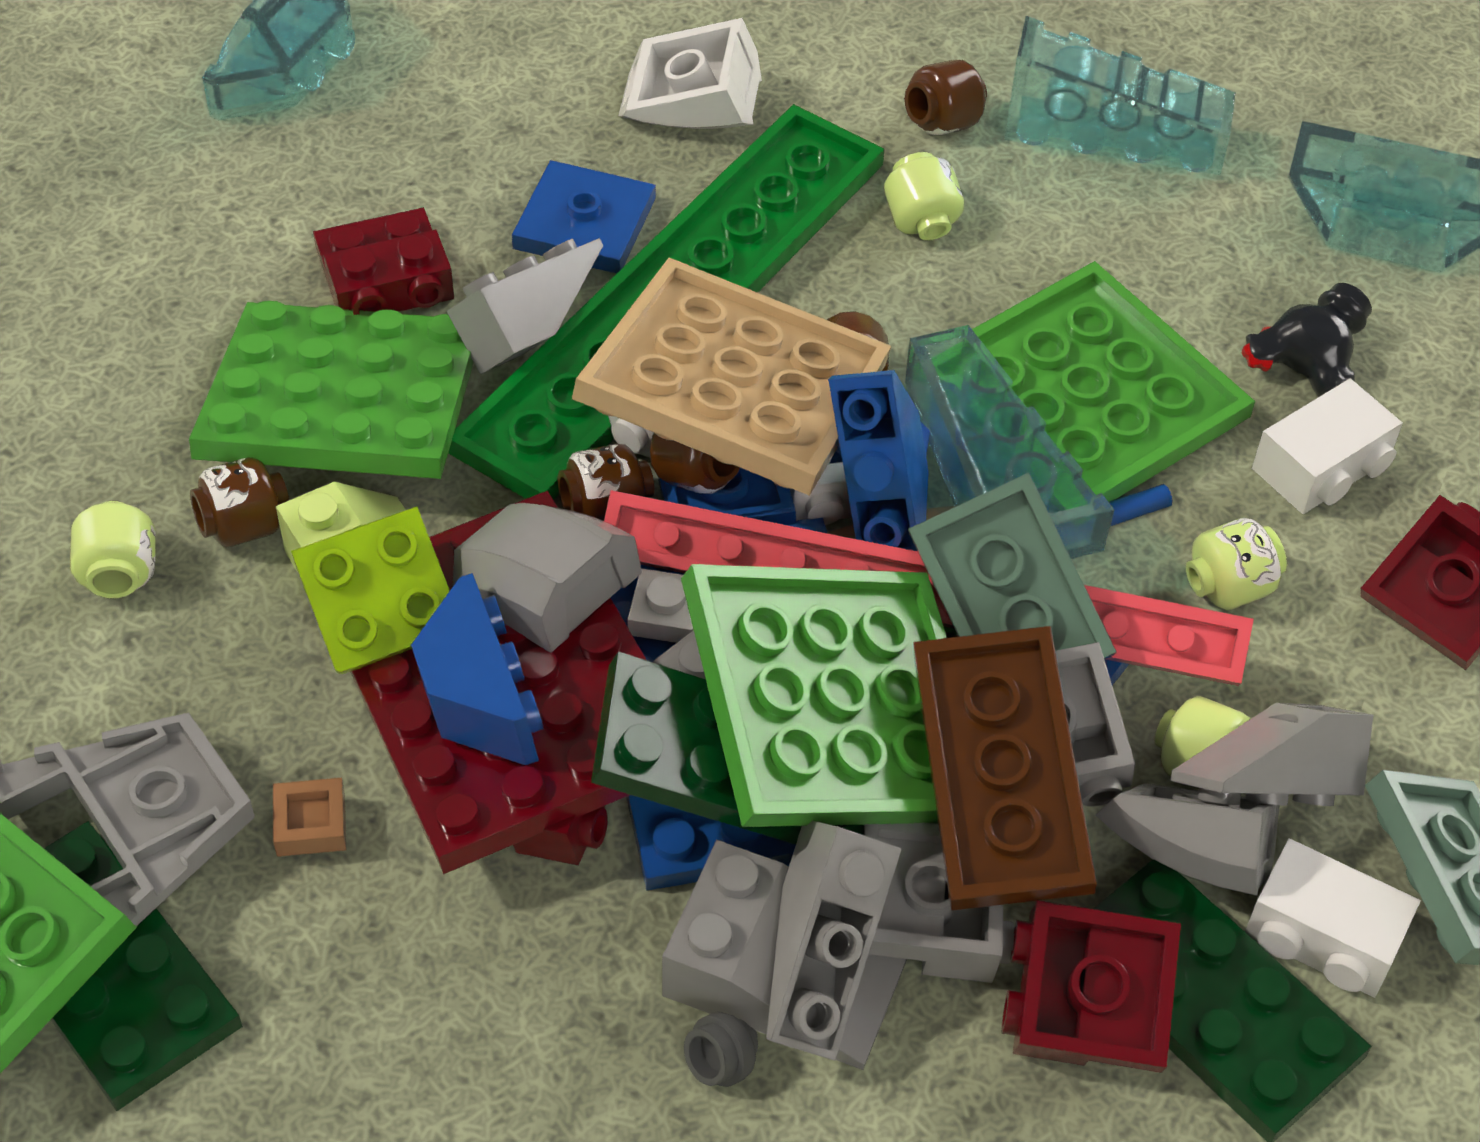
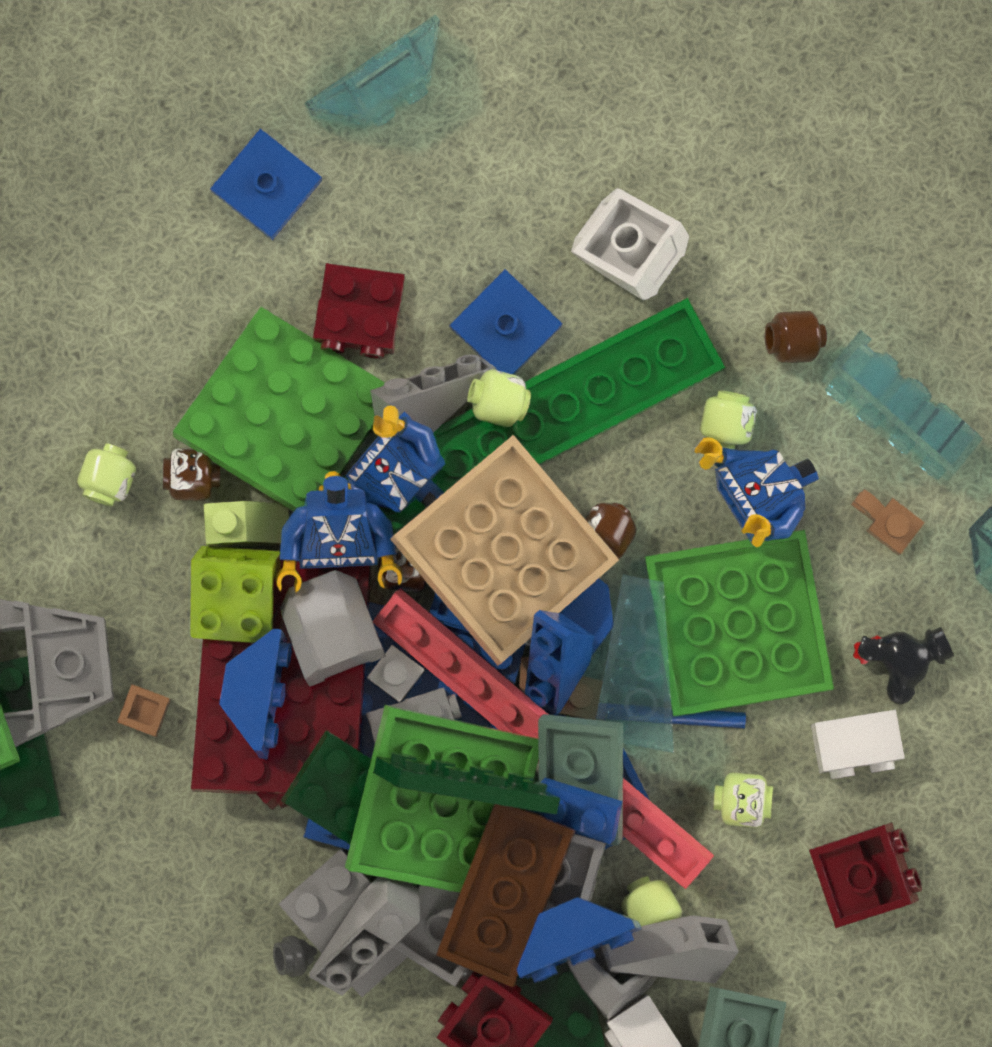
camera: 30 degrees right, 30 degrees up
(191, 191) = (266, 184): none -> blue plate
(491, 450) = (337, 531): none -> blue torso
(527, 349) = (397, 463): none -> torso
(623, 251) = (499, 398): none -> yellowish green head
(858, 608) = (476, 784): none -> dark green plate
(1010, 240) = (759, 488): none -> torso
(1066, 606) = (585, 811): none -> blue plate
(1143, 756) = (572, 934): none -> blue slope
(1187, 227) = (891, 524): none -> medium nougat plate

